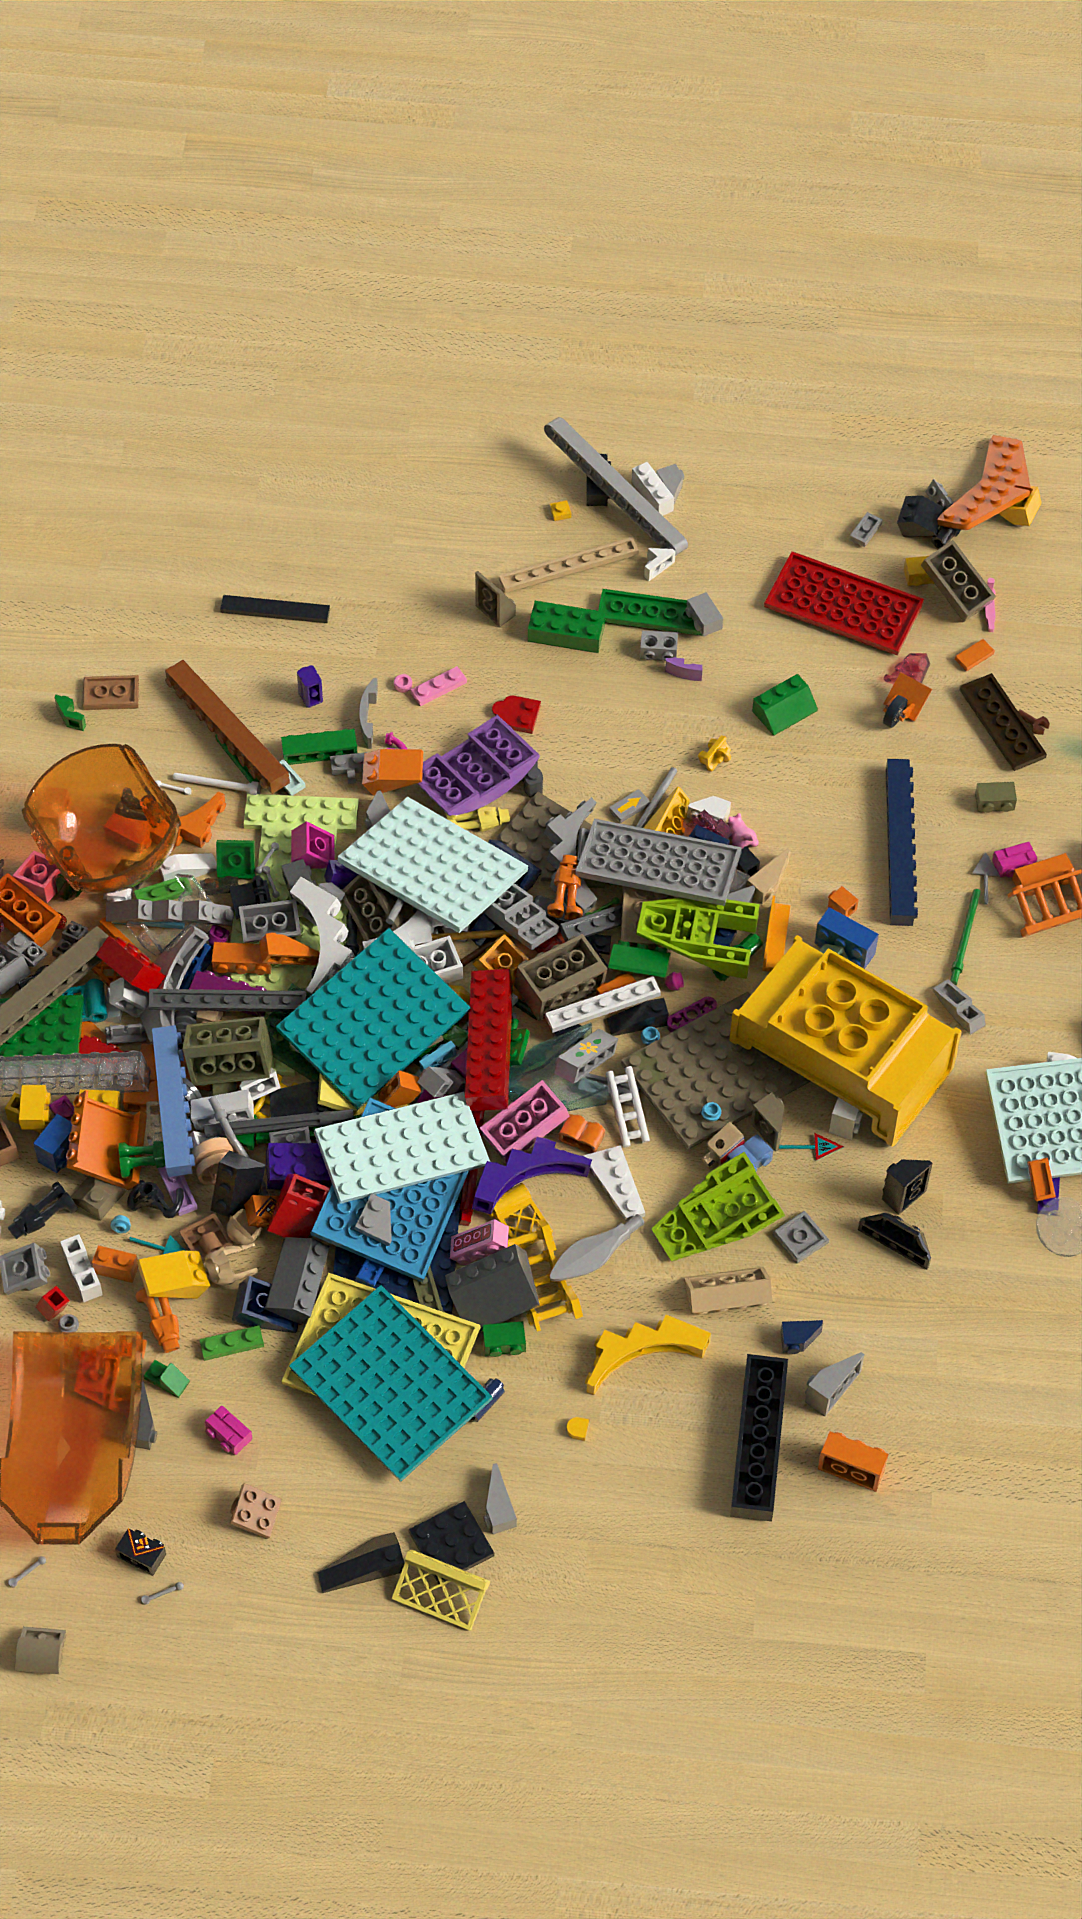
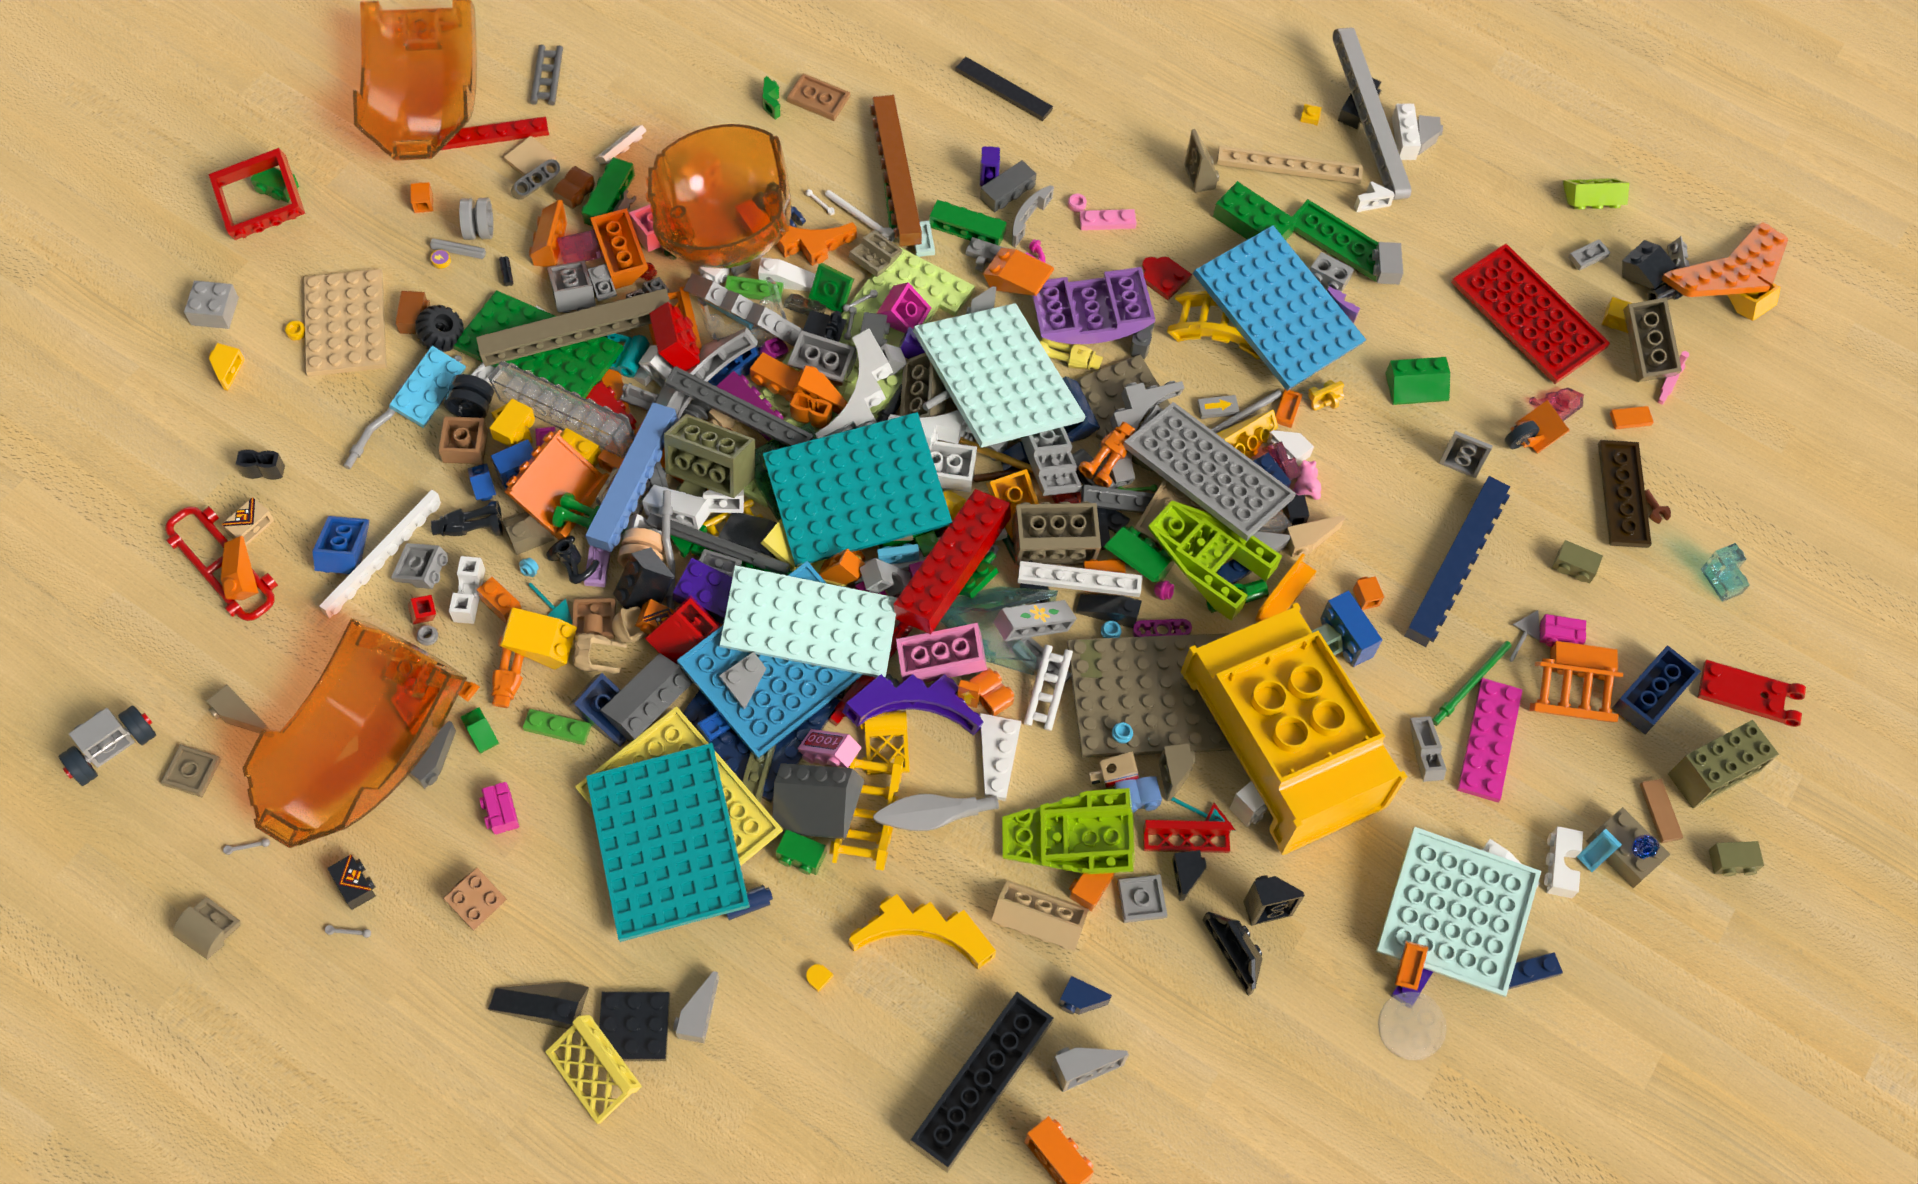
camera: 25 degrees right, 5 degrees up
(30, 1172) = (481, 482): none -> blue slope
(255, 810) = (875, 253): none -> dark tan slope
(287, 972) = (810, 410): none -> orange brick
(334, 696) = (1008, 186): none -> dark grey brick
(567, 1141) = (969, 693): none -> orange tile
(599, 739) = (1194, 330): none -> yellow fence
(635, 695) = (1279, 307): none -> dark azure plate
(688, 779) = (1288, 408): none -> orange tile
(755, 1249) = (1090, 889): none -> orange slope
(806, 1163) = (1190, 829): none -> red fence
(825, 1196) = (1188, 870): none -> black slope
(842, 471) = (1596, 193): none -> lime slope
(858, 749) = (1465, 454): none -> light grey slope
(1004, 975) = (1490, 740): none -> dark pink plate

